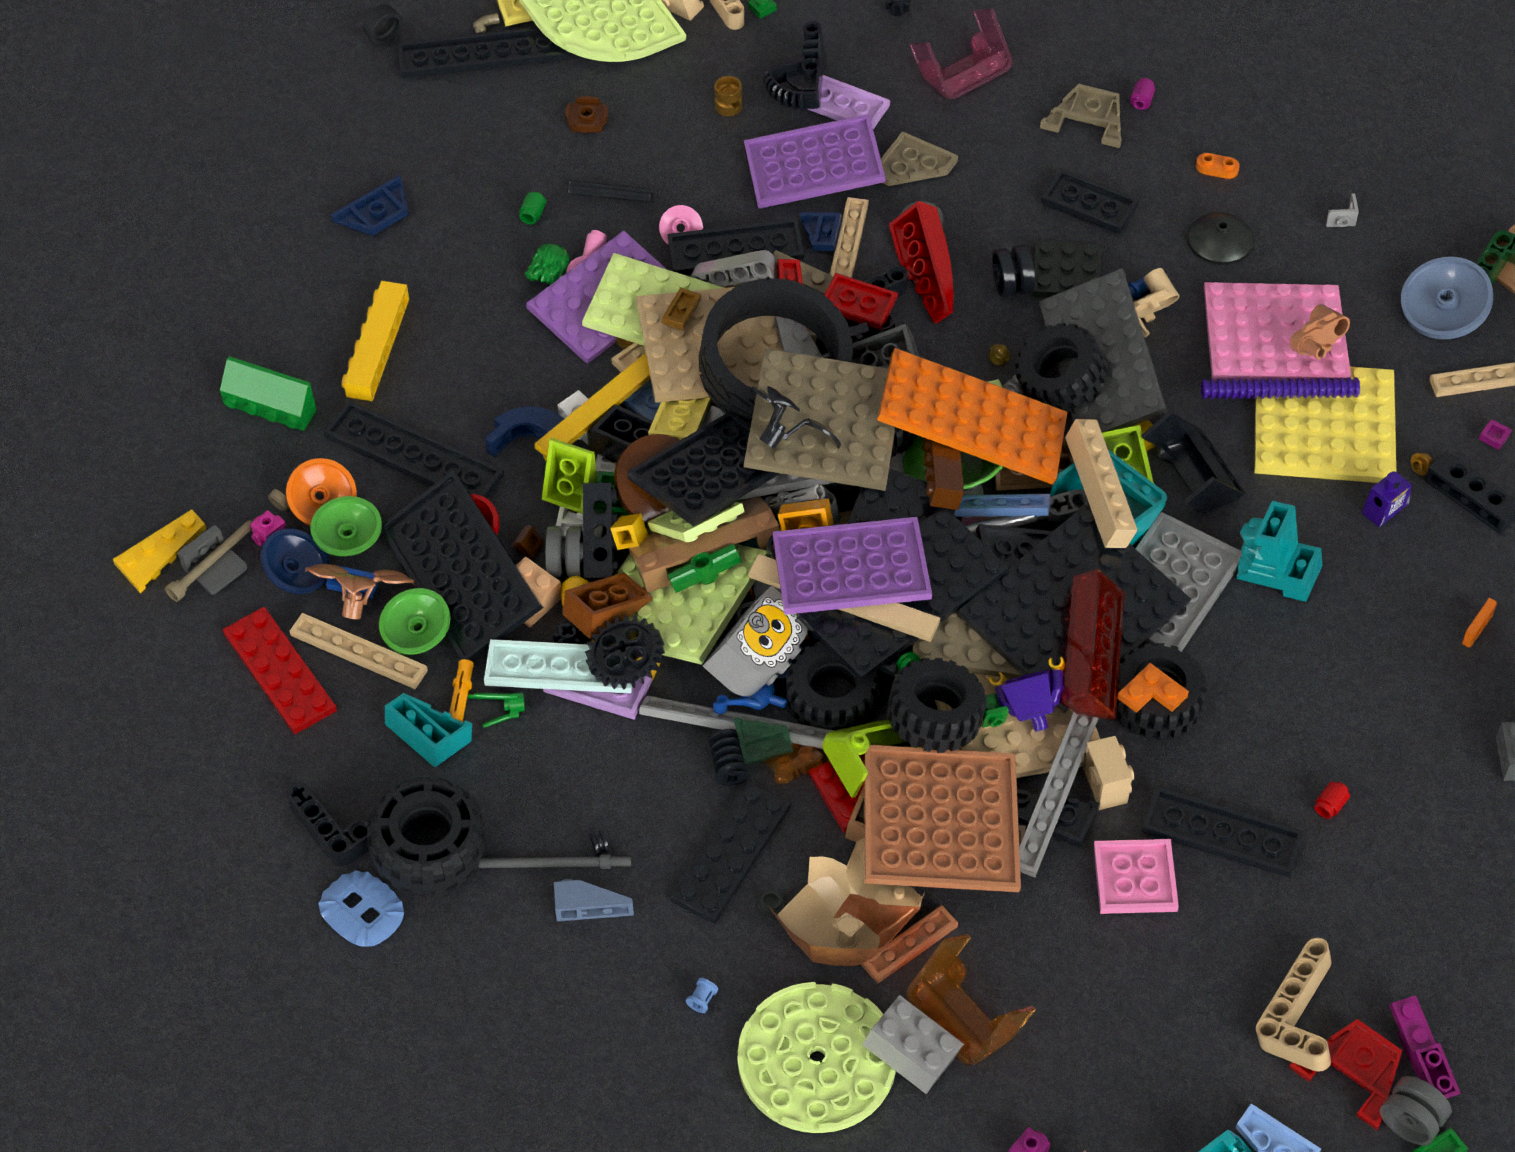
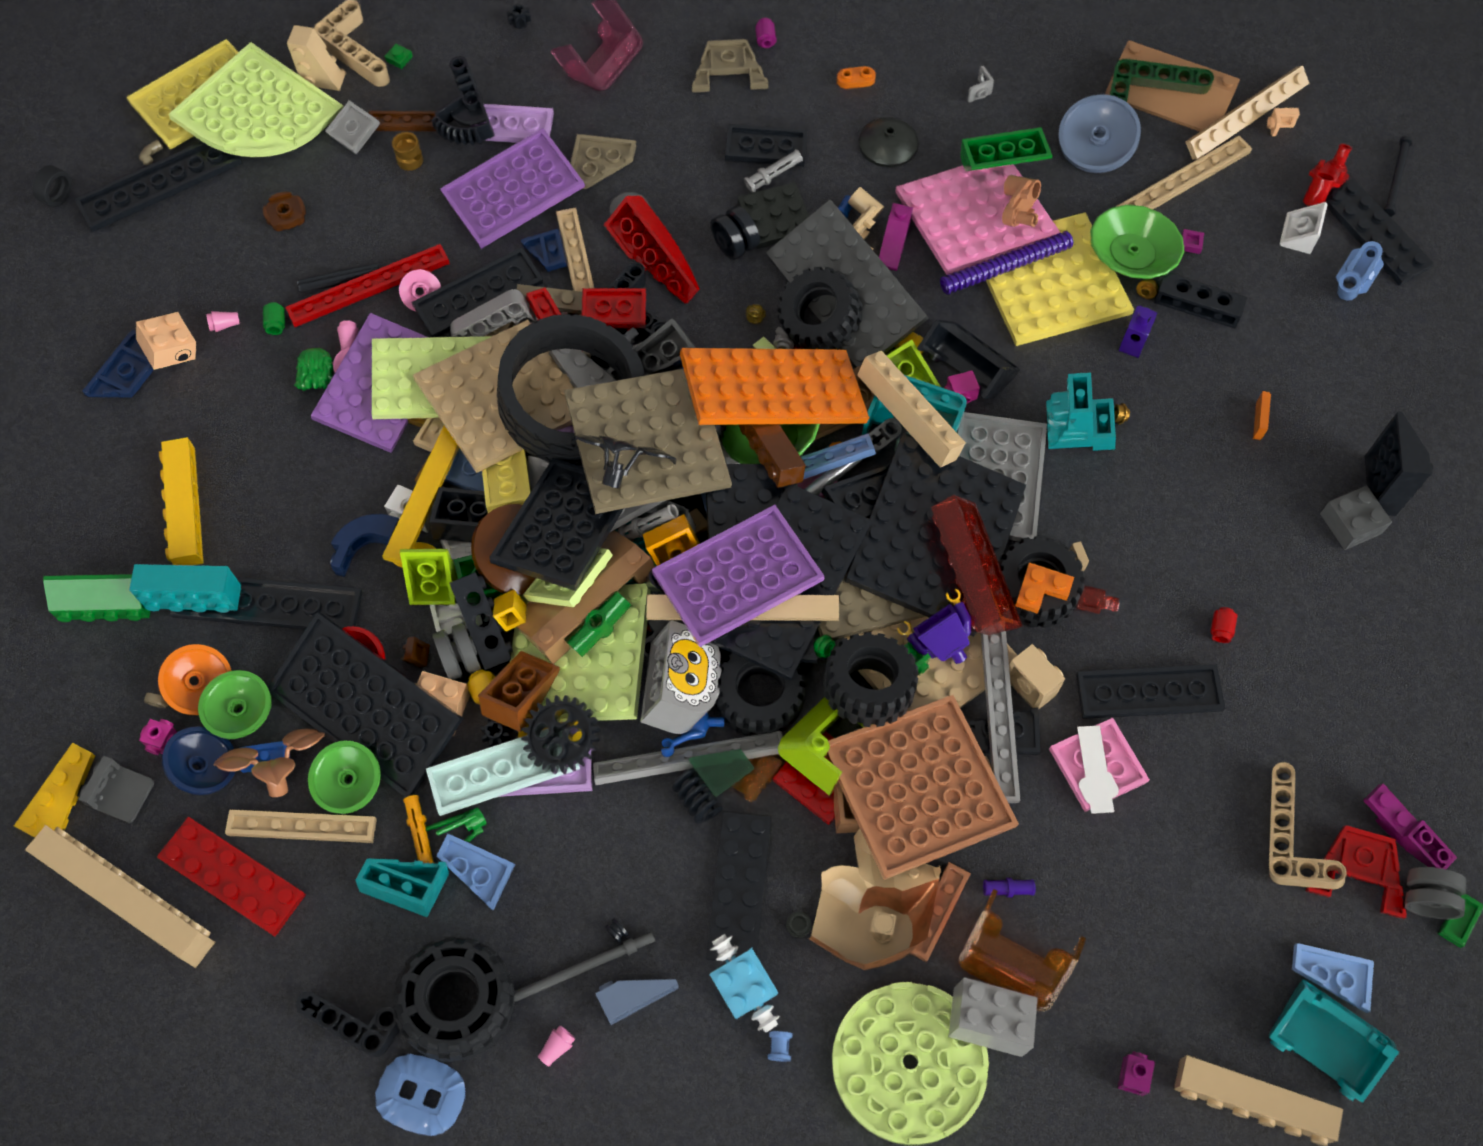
camera: 25 degrees left, 10 degrees up
(177, 589) = (94, 832): dark tan piece -> none
(180, 646) = (122, 894): none -> tan brick
(347, 410) = (185, 587): none -> teal brick
(424, 194) = (165, 340): none -> light nougat brick
(484, 194) = (222, 320): none -> bright pink cone
(498, 743) = (477, 868): none -> medium blue wing
(499, 915) = (556, 1045): none -> bright pink cone
(631, 206) = (365, 286): none -> red plate
(681, 309) = (462, 373): pearl gold plate -> none
(686, 57) = (352, 127): none -> light grey plate
(693, 927) = (744, 983): none -> medium azure plate
(734, 66) = (404, 120): none -> reddish brown tile
(990, 948) = (1009, 887): none -> dark purple pin
(1072, 232) = (764, 175): none -> light grey pin
(1125, 890) = (1098, 785): none -> white sticker
(1177, 490) = (964, 384): none -> dark pink brick
(1179, 328) = (895, 235): none -> magenta slope
(1208, 729) = (1094, 599): none -> clear red plate
(1213, 682) = (1080, 554): none -> tan plate
(1329, 570) = (1121, 413): none -> pearl gold plate
(1330, 278) = (1004, 149): none -> green slope
(1429, 412) = (1137, 241): none -> bright green dish

